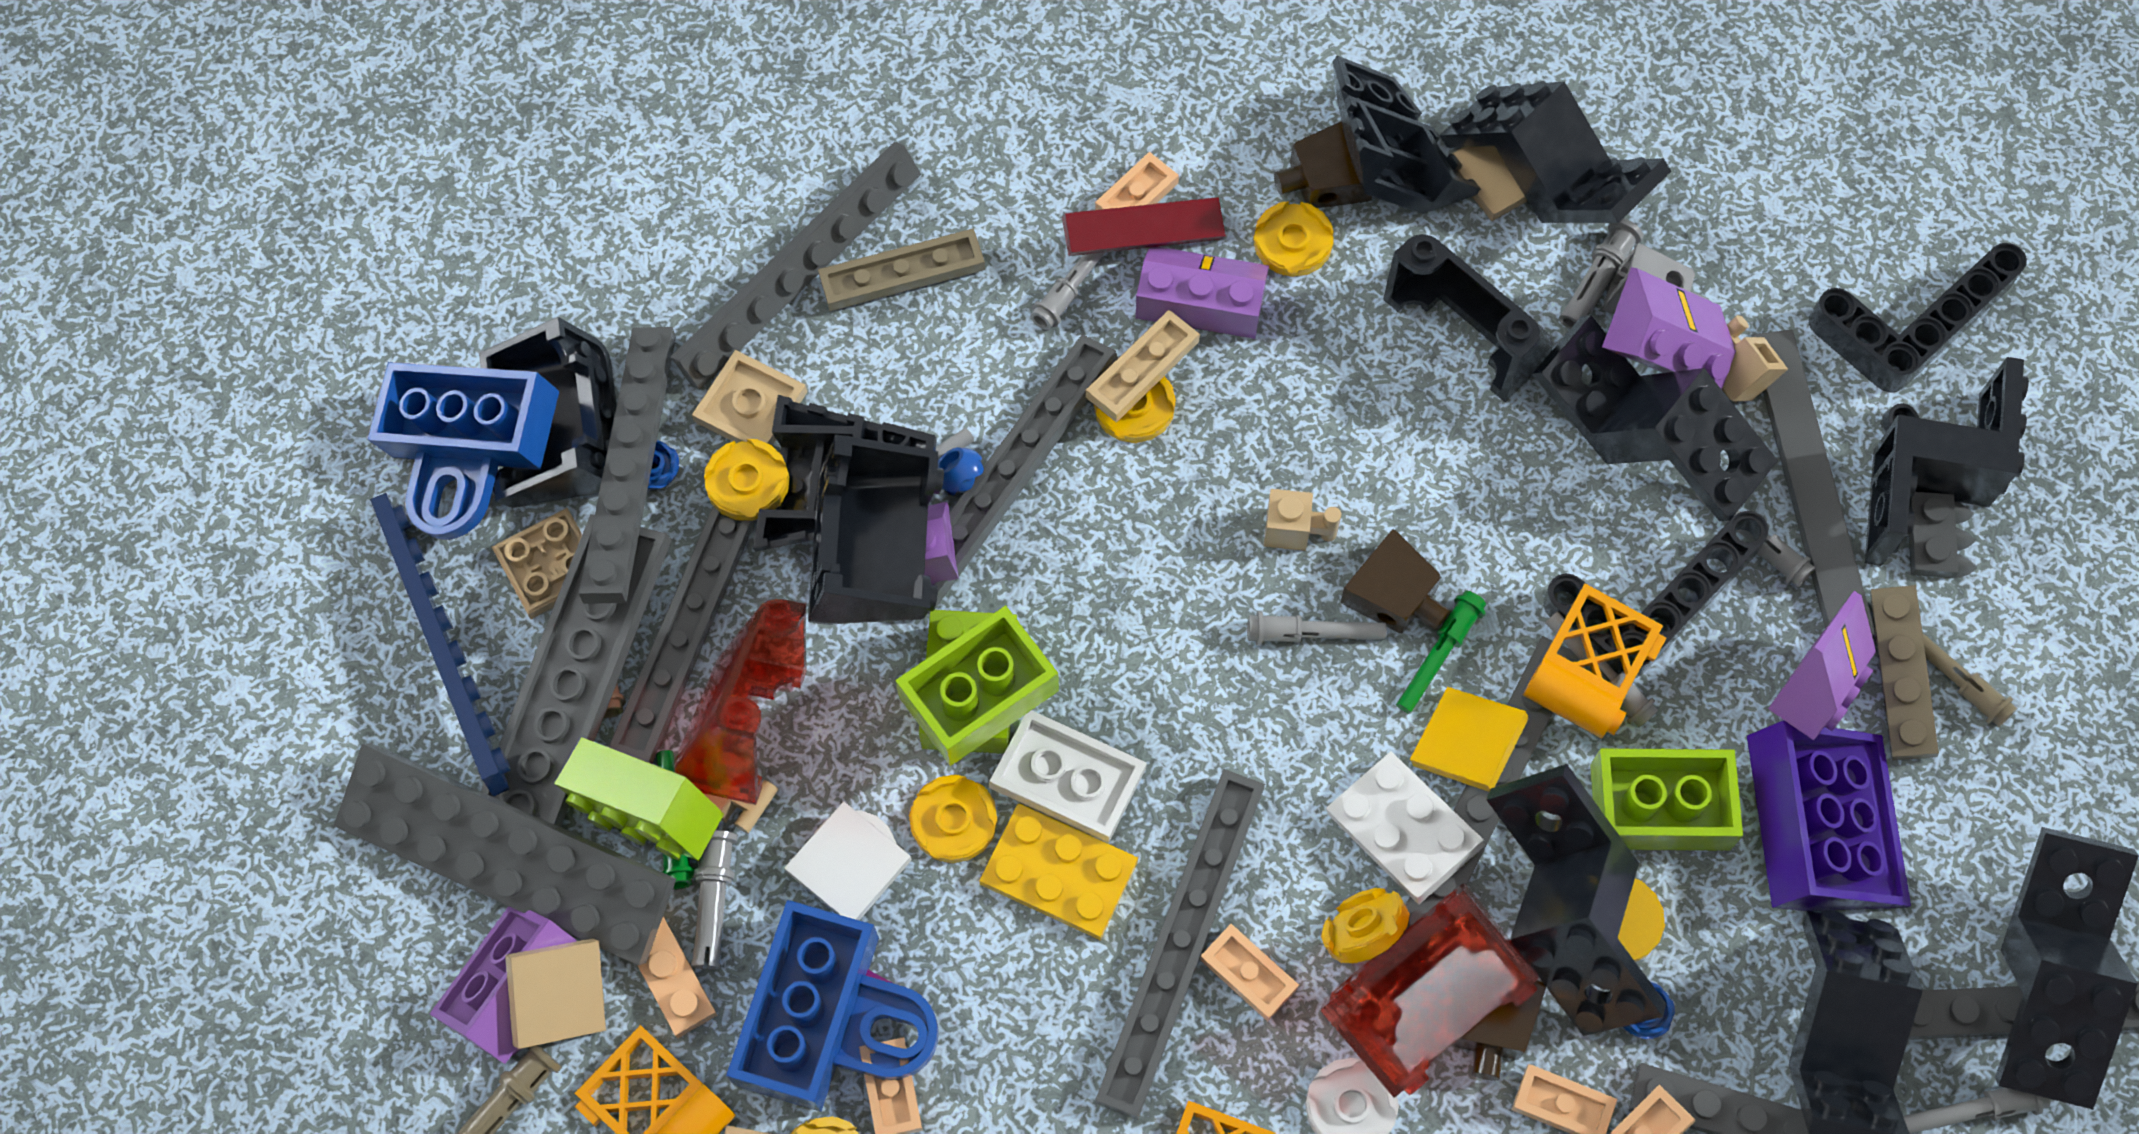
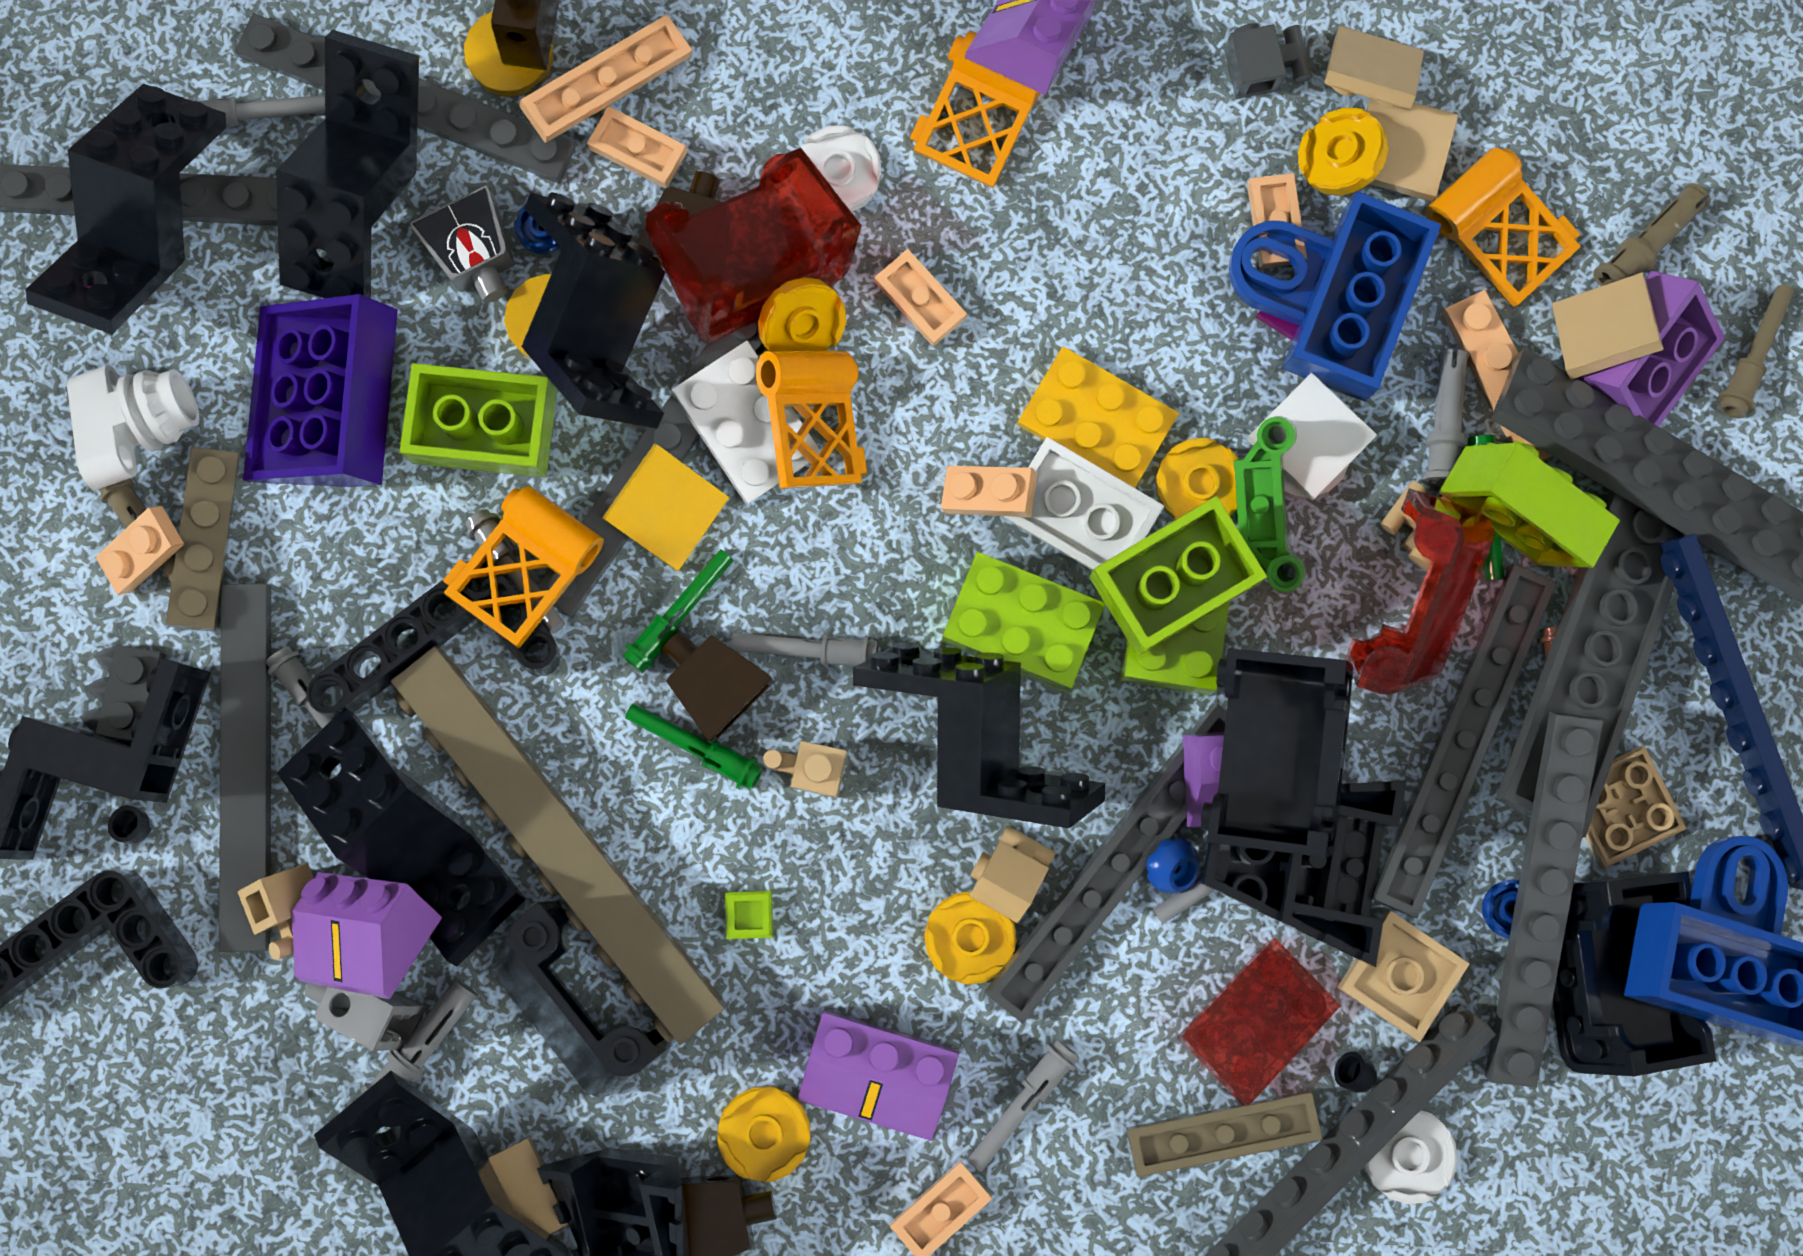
camera: 175 degrees left, 15 degrees up
(407, 976) = (1749, 371): none -> dark tan pin
(724, 281) = (1404, 1151): none -> white tile
(746, 479) = (1410, 873): yellow tile -> none
(790, 324) = (1355, 1072): none -> black hinge
(876, 354) = (1259, 1022): none -> clear red plate
(892, 788) = (1262, 504): none -> bright green plate
(1105, 446) = (1011, 874): none -> tan brick
(1117, 663) = (1024, 620): none -> lime brick
(1142, 366) = (958, 971): tan plate -> none
(1143, 226) = (939, 1157): dark red tile -> none
(1147, 545) = (981, 735): none -> black bracket
(1159, 782) = (989, 491): none -> light nougat plate
(1179, 945) = (982, 336): dark grey plate -> none
(1333, 403) = (749, 915): none -> lime tile
(1346, 865) = (803, 381): none -> light orange piece
(1380, 525) = (714, 756): none -> green pin
(1516, 442) = (559, 845): none -> dark tan brick
(1715, 981) = (469, 243): none -> torso
(1829, 672) = (285, 525): medium lavender slope -> none
(1960, 652) = (139, 550): none -> light nougat plate
(2010, 769) = (121, 412): none -> white beam

